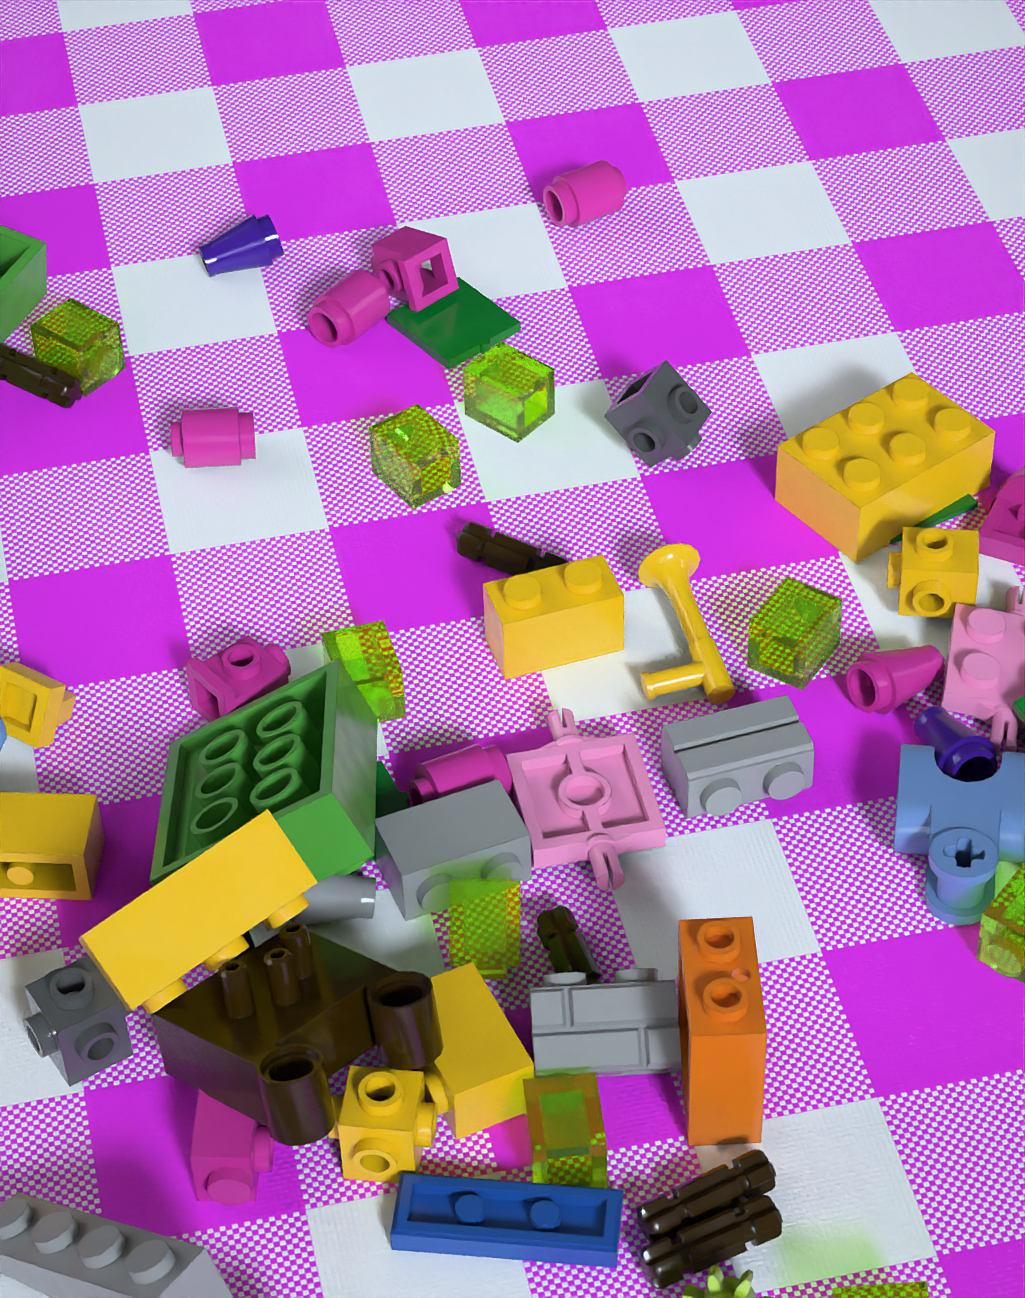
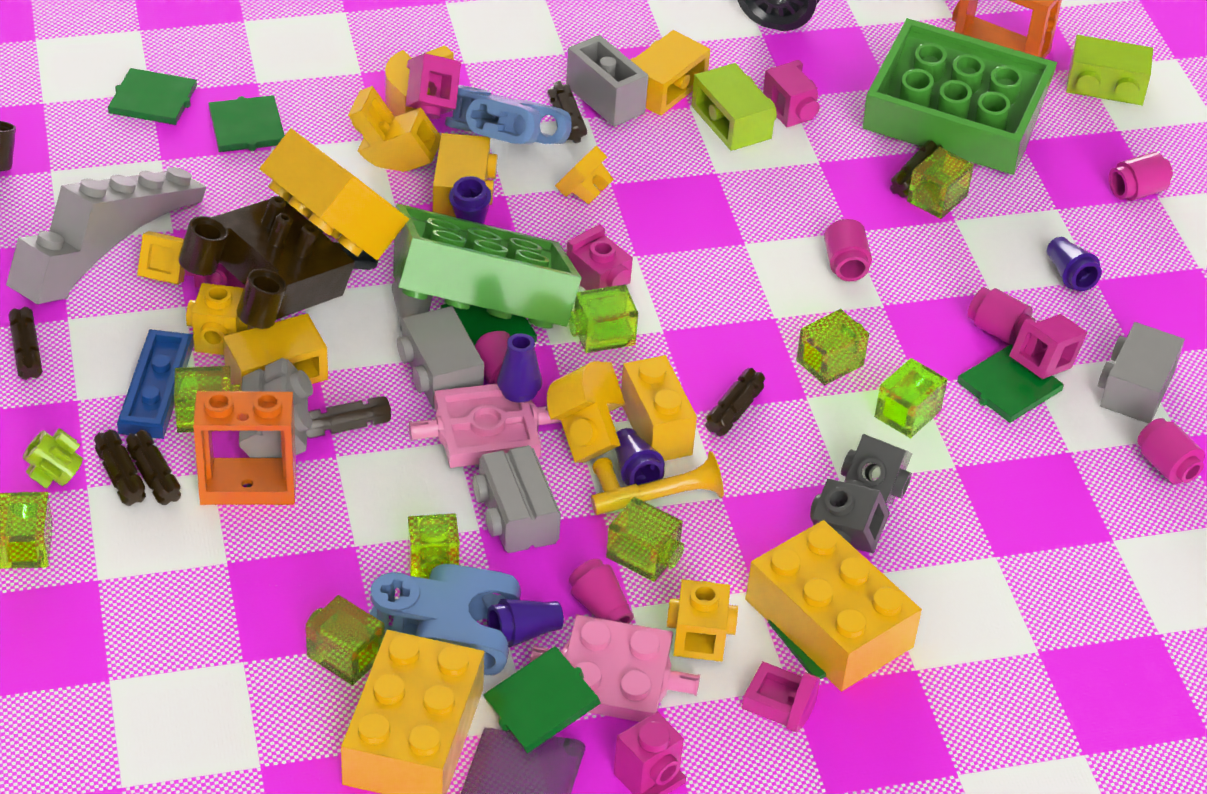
camera: 85 degrees right, 0 degrees up
(76, 178) = (1140, 176): none -> dark pink brick
(124, 812) = (470, 199): none -> dark purple cone
(220, 1220) = (160, 258): none -> yellow tile
(453, 202) = (1140, 372): none -> light grey brick
(486, 924) = (368, 361): clear neon green brick -> none
(527, 729) = (520, 372): none -> dark purple cone
(569, 675) = (584, 407): none -> yellow brick
(641, 645) = (637, 459): none -> dark purple cone
(740, 440) = (852, 511): none -> dark grey brick
(855, 837) = (432, 542): none -> clear neon green brick

